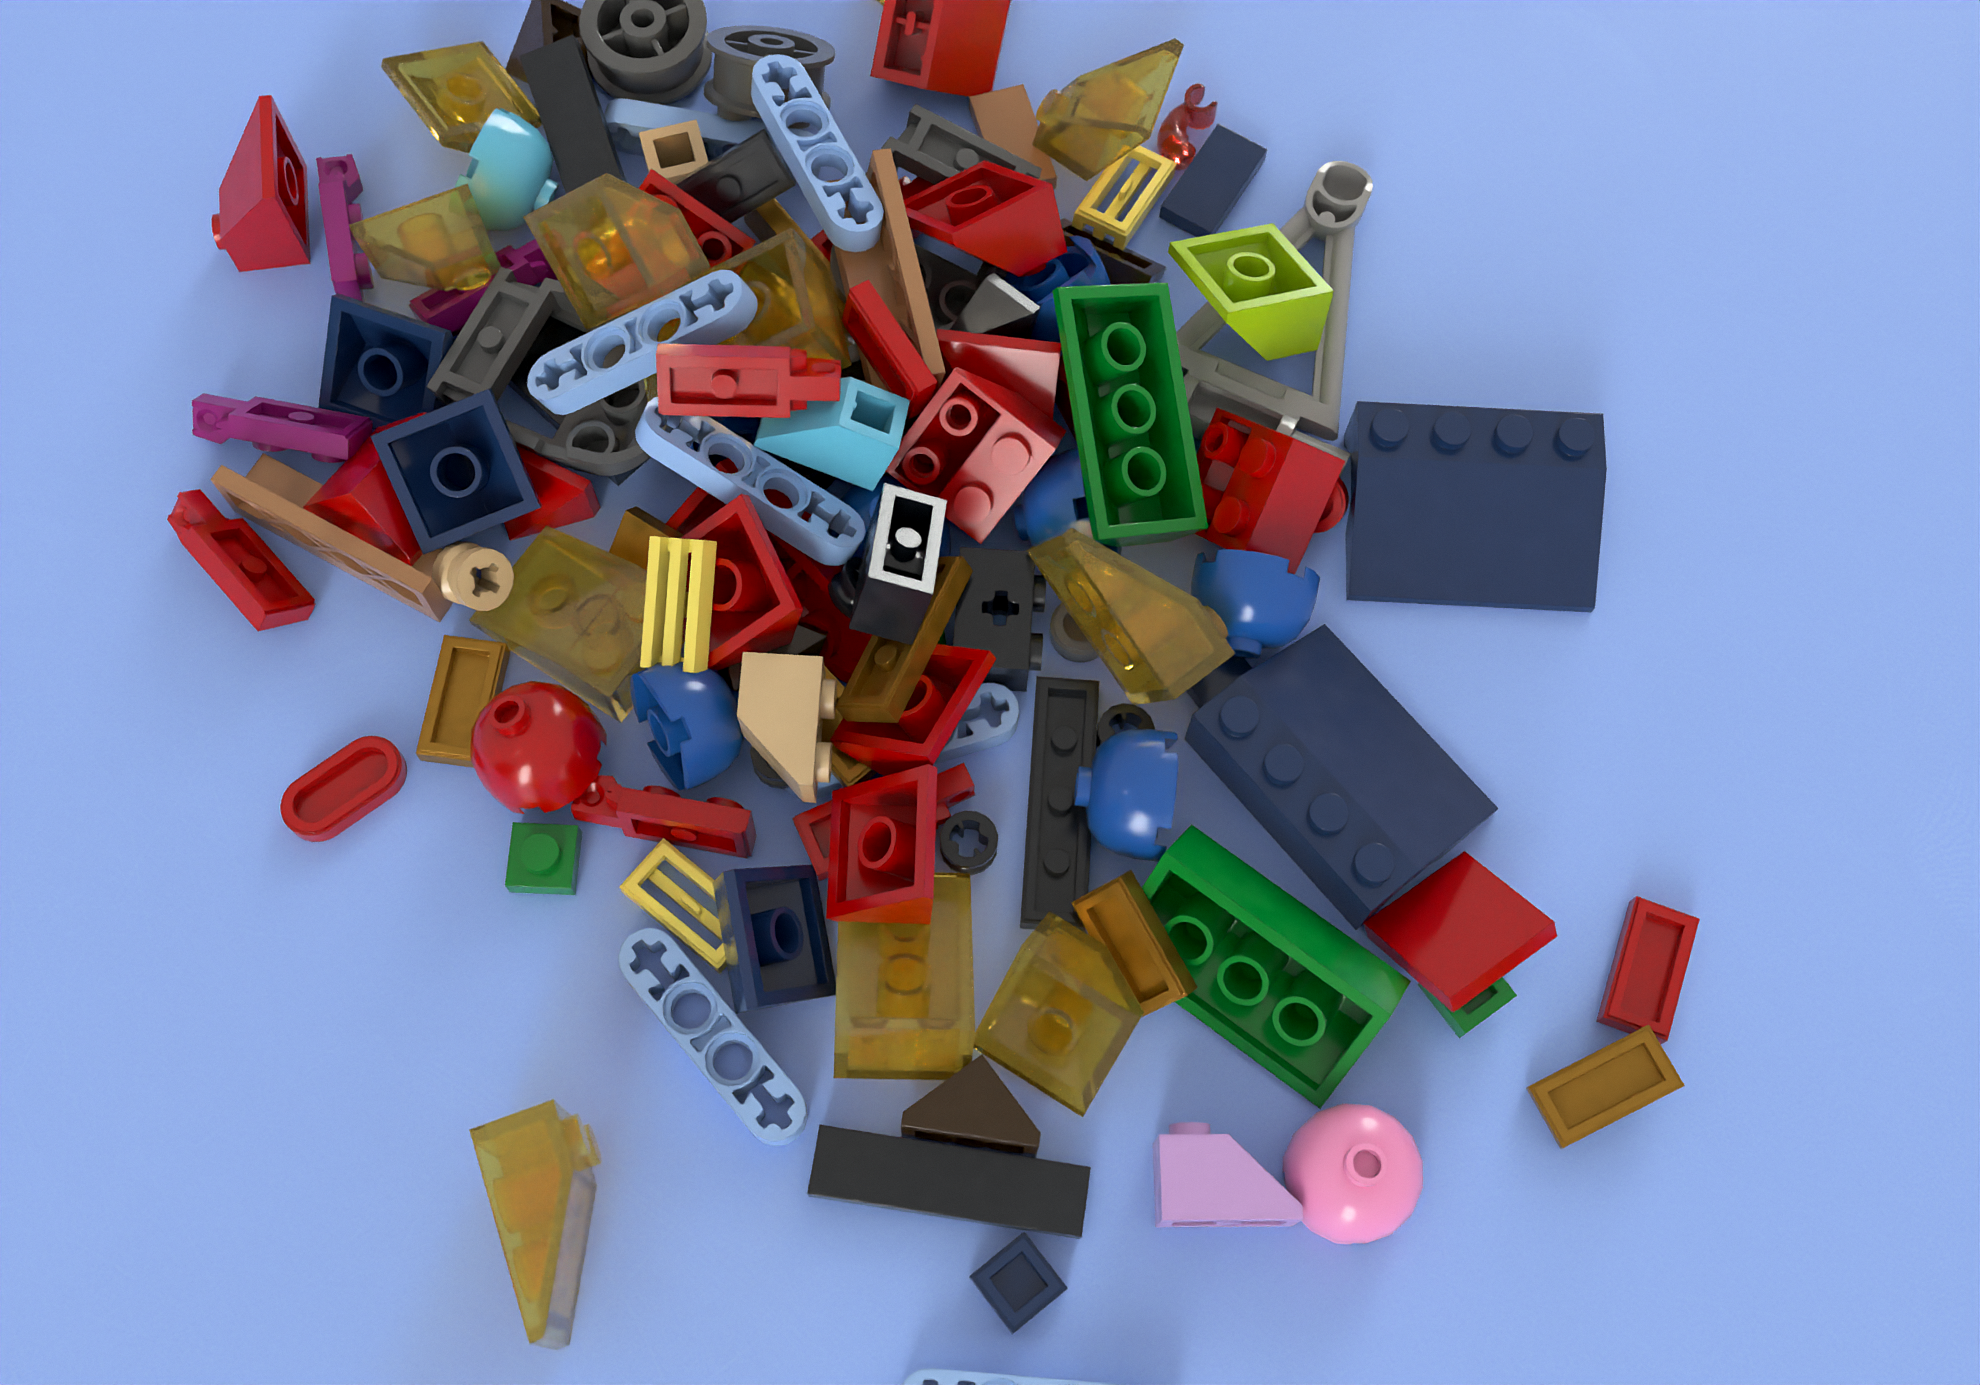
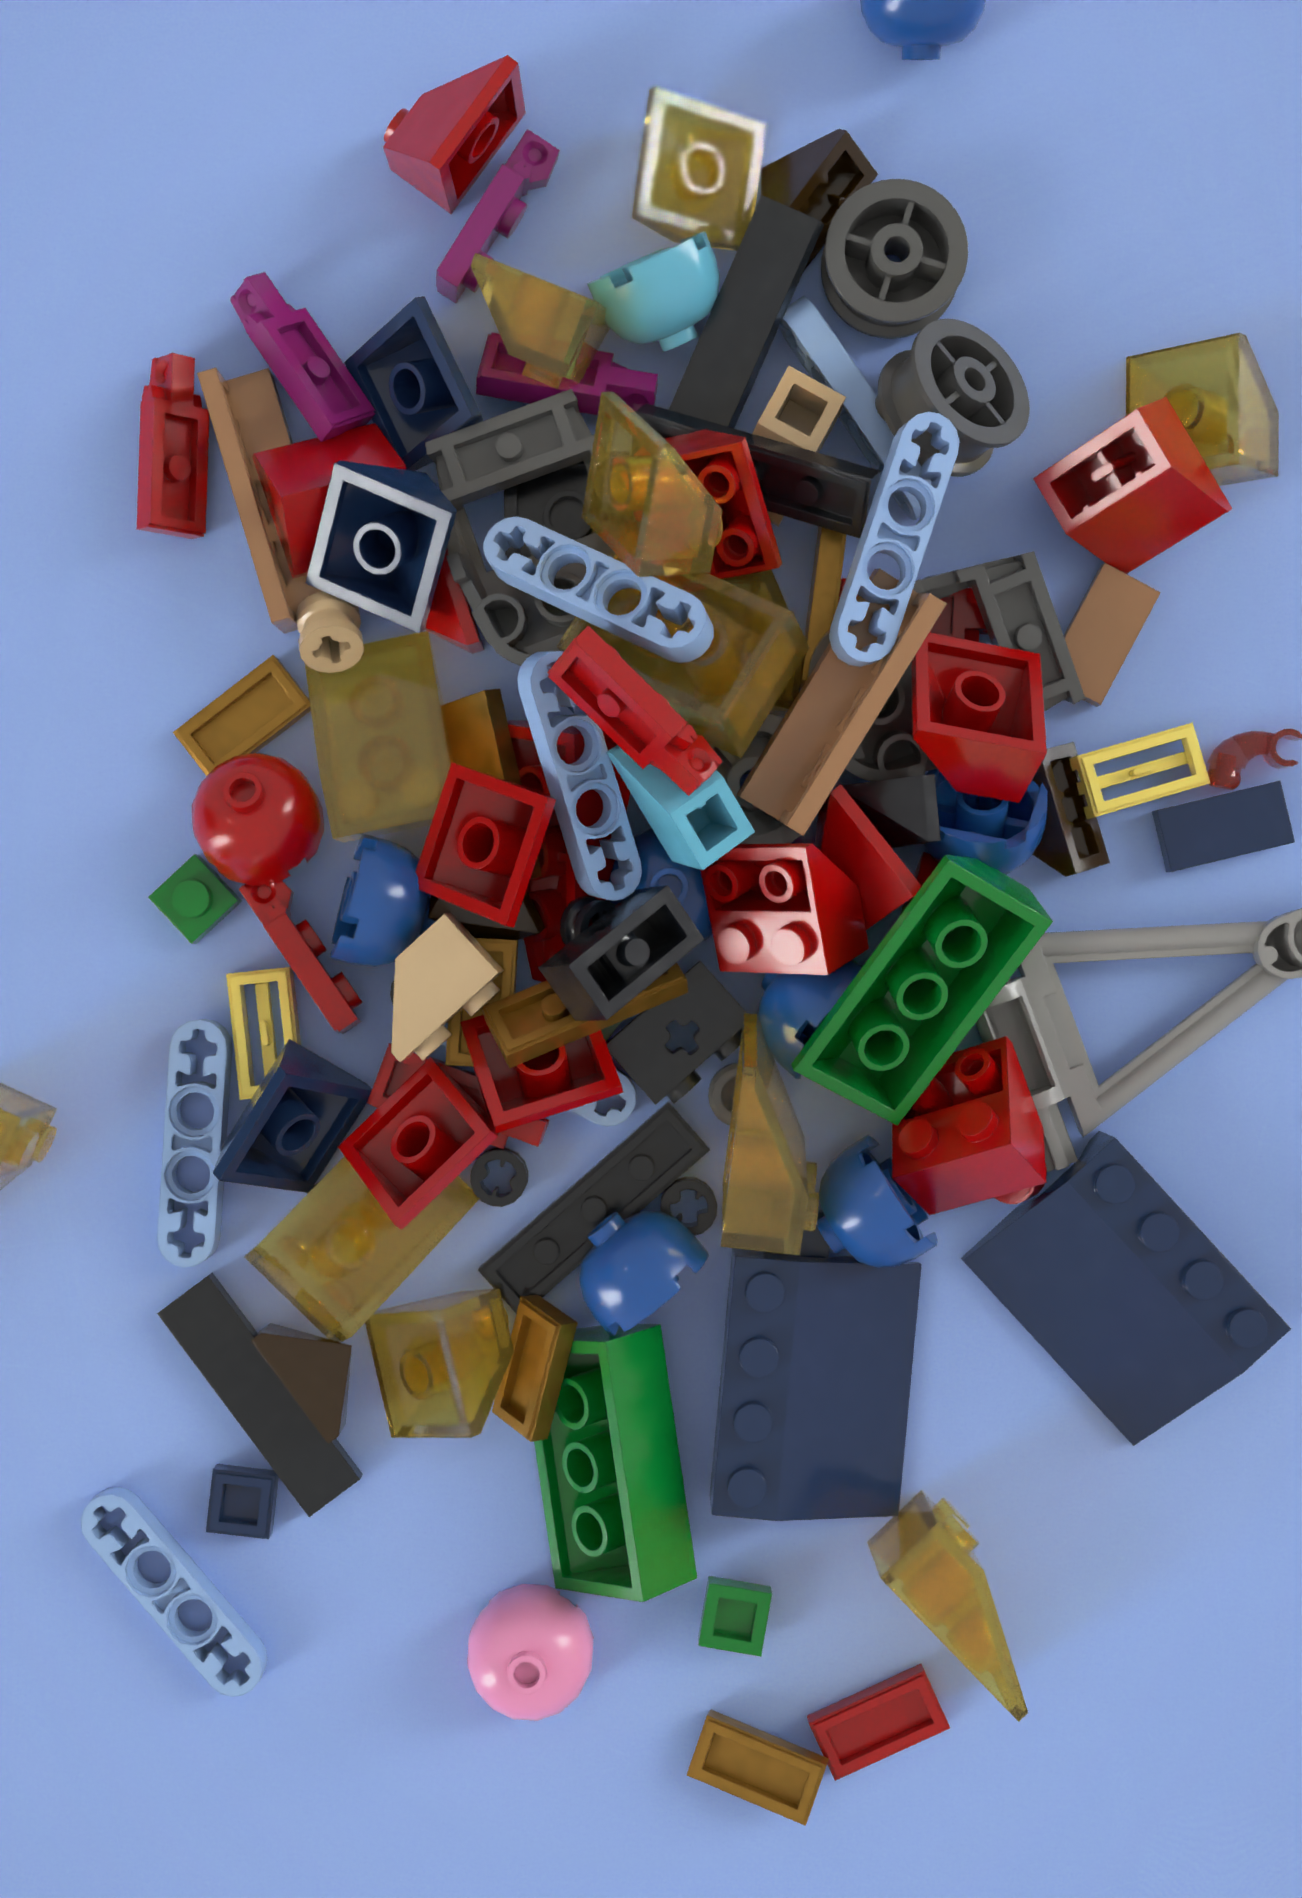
camera: 50 degrees right, 20 degrees up
(343, 788) = (102, 708): red tile -> none
(669, 603) = (434, 815): light yellow tile -> none
(887, 347) = (781, 772): red tile -> none
(1106, 110) = (1194, 696): clear yellow slope -> none
(1215, 1183) = (426, 1573): lavender slope -> none
(1259, 287) = (1141, 965): lime slope -> none
(1460, 930) = (769, 1582): red tile -> none
(1597, 802) = (934, 1571): none -> clear yellow slope

